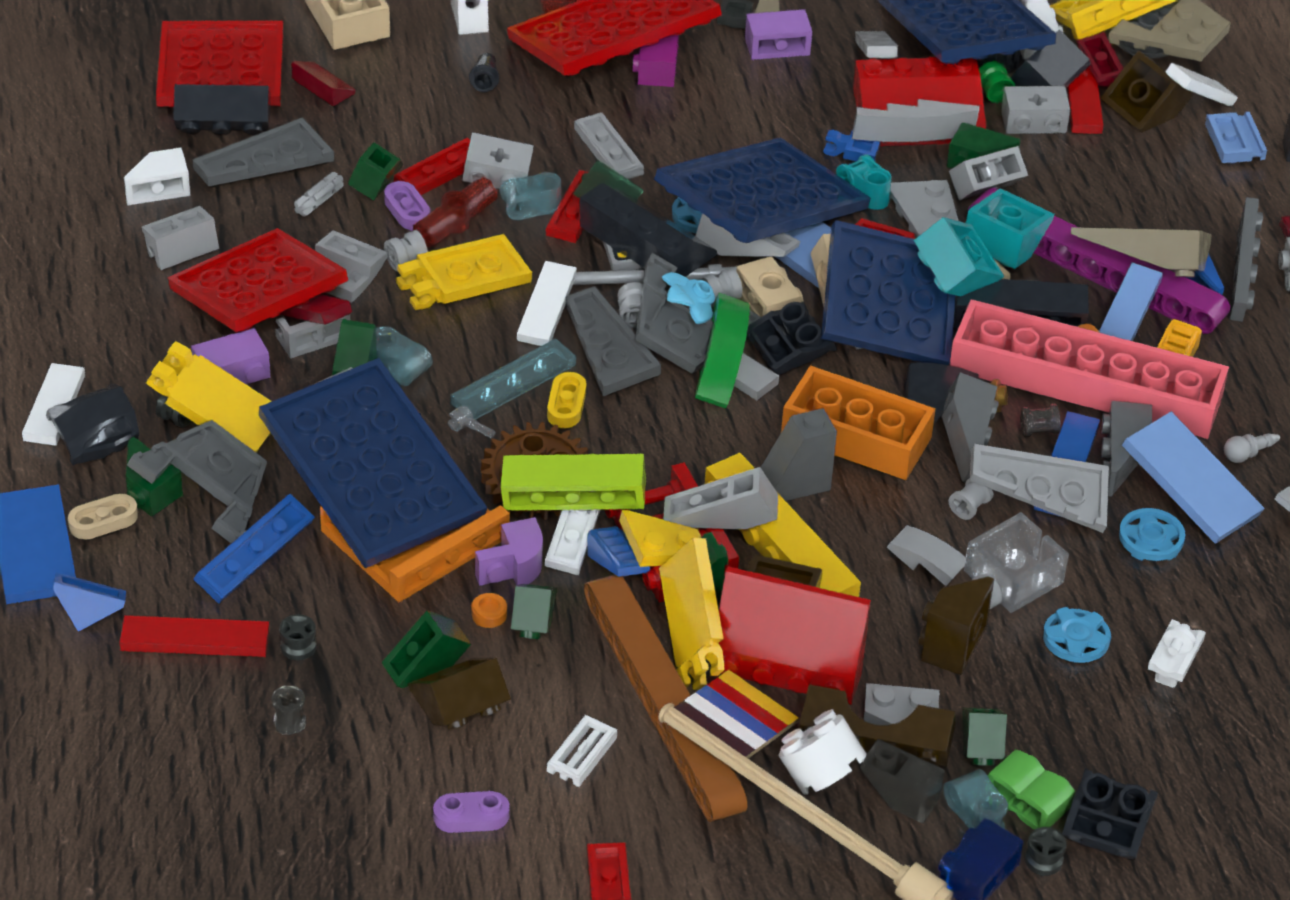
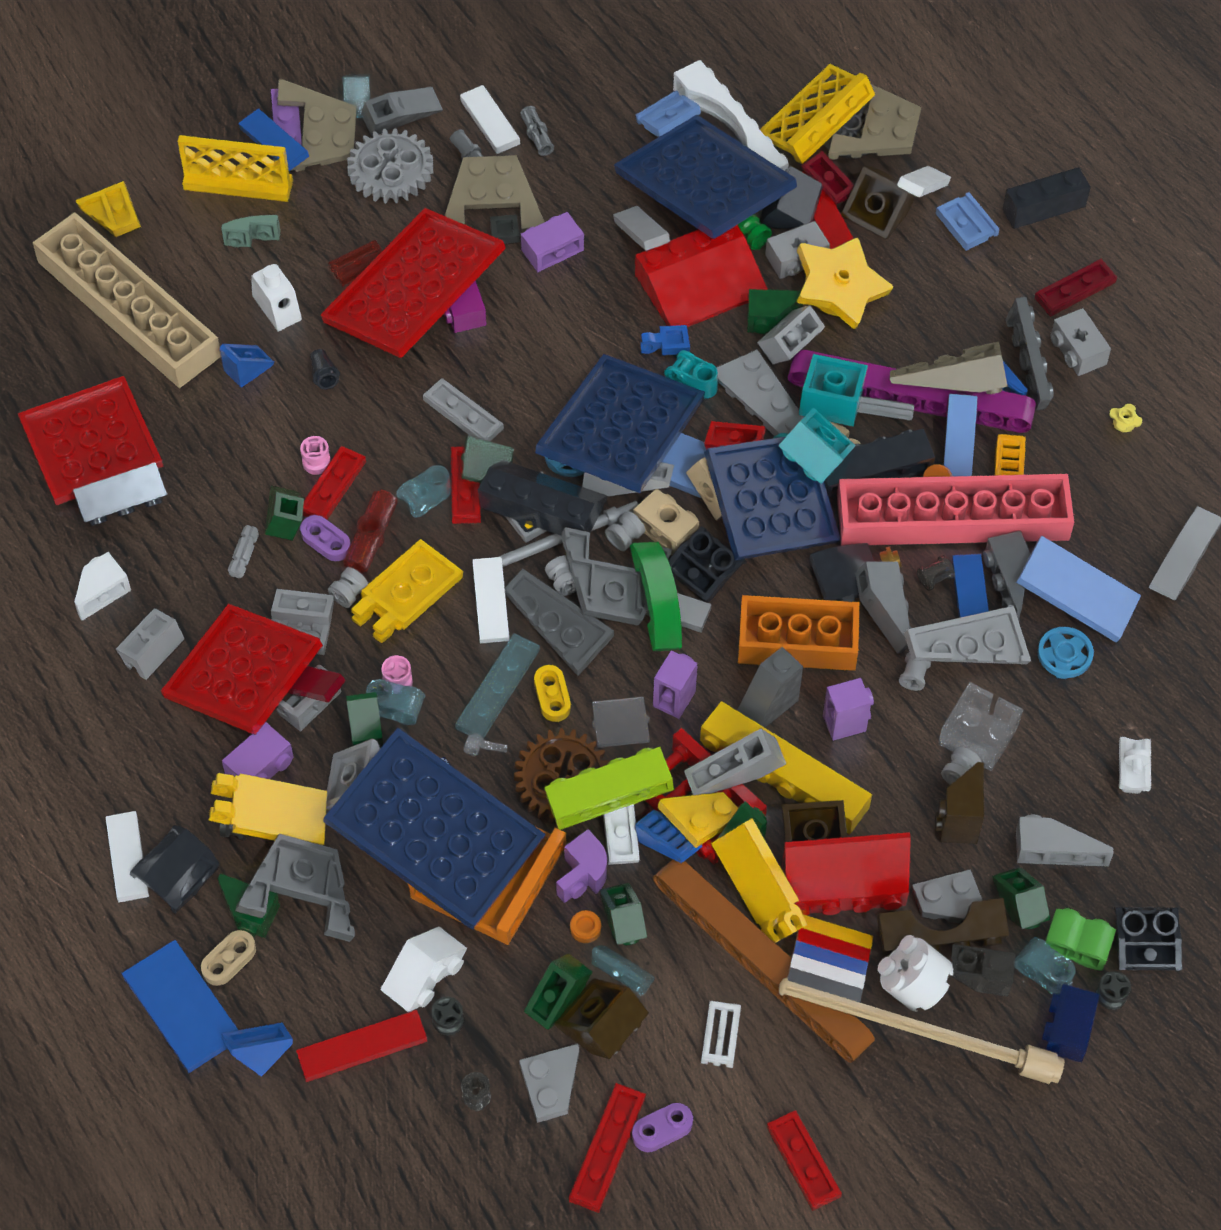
camera: 20 degrees left, 15 degrees up
(254, 548) = (369, 941): blue tile -> none
(267, 153) = (178, 525): dark grey wing -> none
(290, 576) = (422, 965): none -> white brick
(321, 82) = (187, 428): dark red slope -> none
(374, 731) = (550, 1081): none -> light grey wing
(400, 810) = (607, 1148): none -> red tile
(407, 44) = (244, 362): none -> blue slope
(415, 327) = (397, 670): none -> bright pink wheel
(435, 133) = (315, 454): none -> bright pink wheel
(496, 159) = (383, 467): light grey brick -> none
(510, 662) = (621, 969): none -> clear light blue slope
(630, 440) = (620, 722): none -> clear piece
(692, 293) = (612, 555): medium azure plate -> none
(697, 423) = (675, 684): none -> medium lavender brick
(874, 500) = (847, 708): none -> medium lavender brick
(913, 123) = (703, 307): light grey slope -> none
(938, 557) = (902, 738): light grey slope -> none
(1049, 696) = (1051, 842): none -> light grey slope
(1060, 267) = (886, 408): none -> light grey axle
(1065, 143) = (840, 280): none -> yellow plate
(1077, 631) = (1049, 772): dark azure wheel -> none
(1239, 448) = (1099, 543): light grey bar -> none

